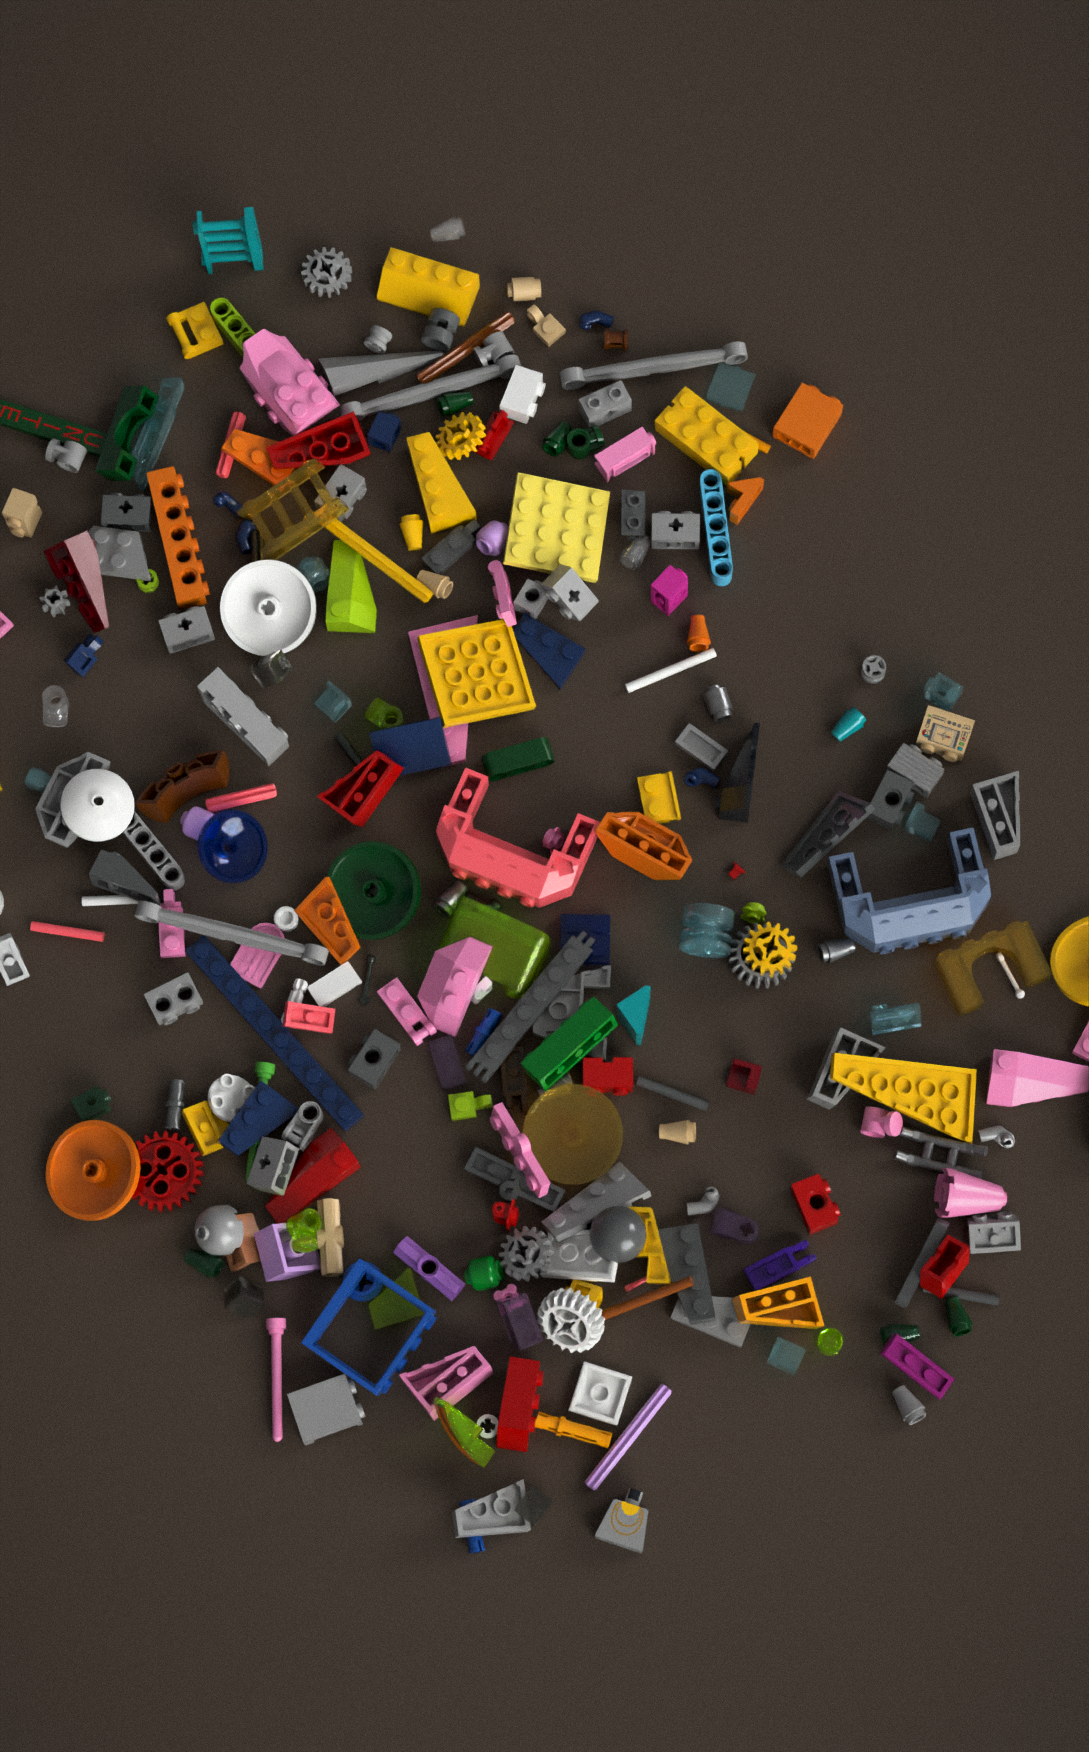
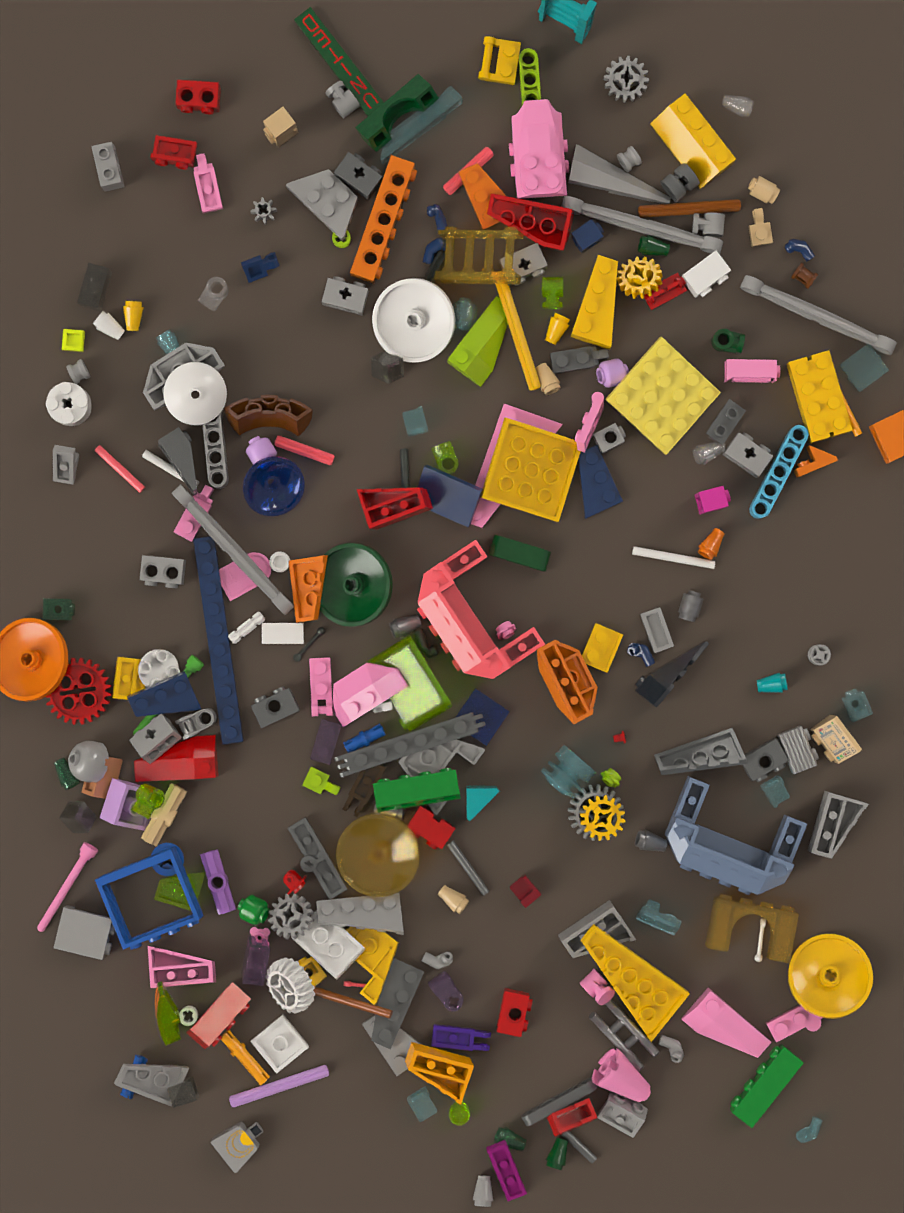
camera: 30 degrees right, 15 degrees up
(79, 567) = (297, 195): dark red wedge -> none
(174, 1105) = (115, 648): dark grey pin -> none
(242, 716) = (343, 393): light grey wedge -> none
(308, 1017) = (248, 647): coral plate -> none
(385, 499) = (551, 290): none -> clear neon green piece
(521, 1150) = (334, 842): bright pink hinge -> none
(556, 440) = (708, 326): dark green cone -> none
(569, 592) = (638, 454): light grey brick -> none
(605, 404) = (761, 322): light grey brick -> none
(618, 1234) = (361, 948): dark grey piece -> none

